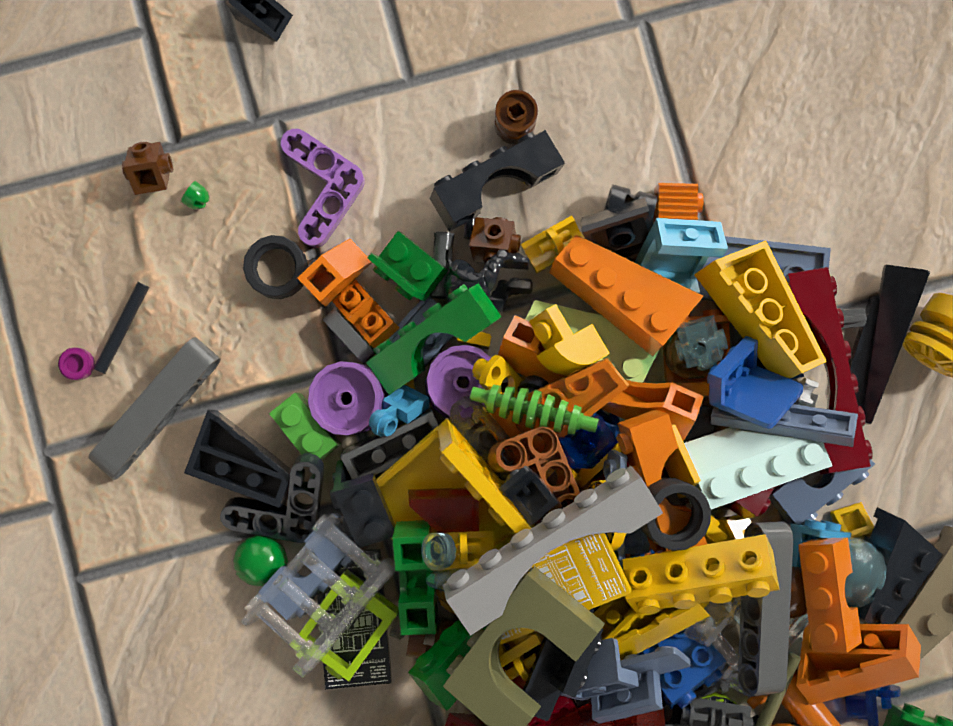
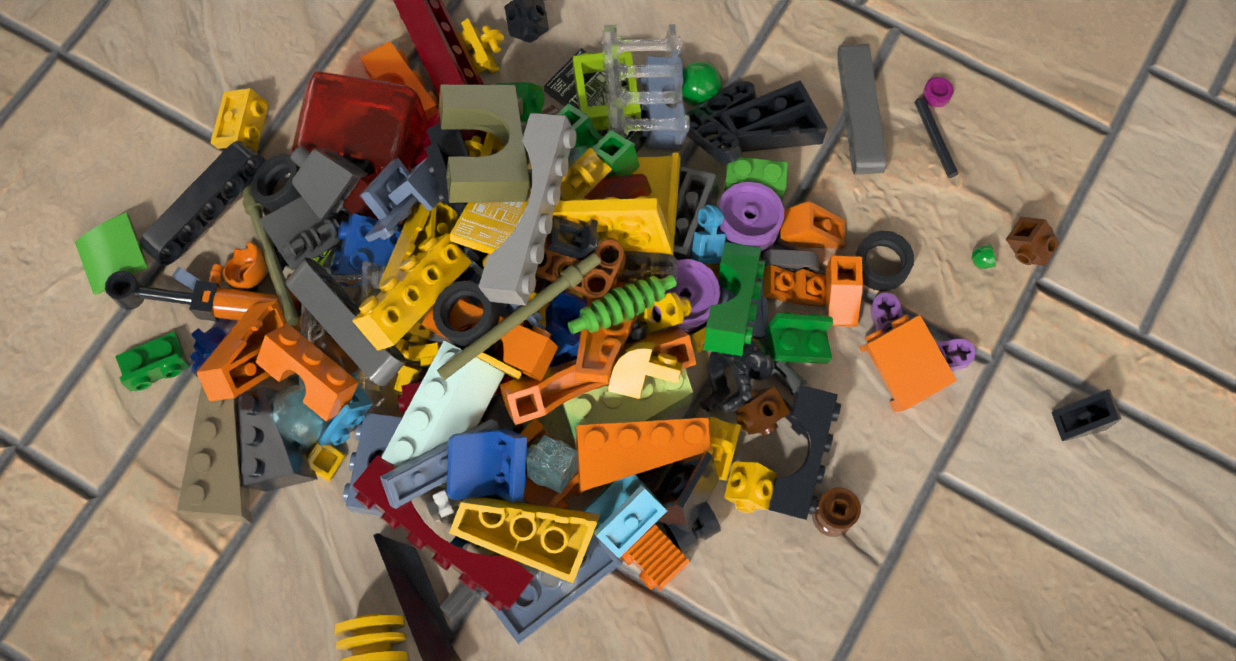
camera: 135 degrees right, 15 degrees down
(301, 345) = (813, 227): none -> orange slope
(346, 170) = (908, 362): none -> orange panel
(362, 507) = (671, 153): black bracket -> none
(438, 550) = (597, 157): clear light blue tile -> none
(559, 194) = (750, 486): none -> yellow brick
(563, 463) = (569, 278): none -> olive bar

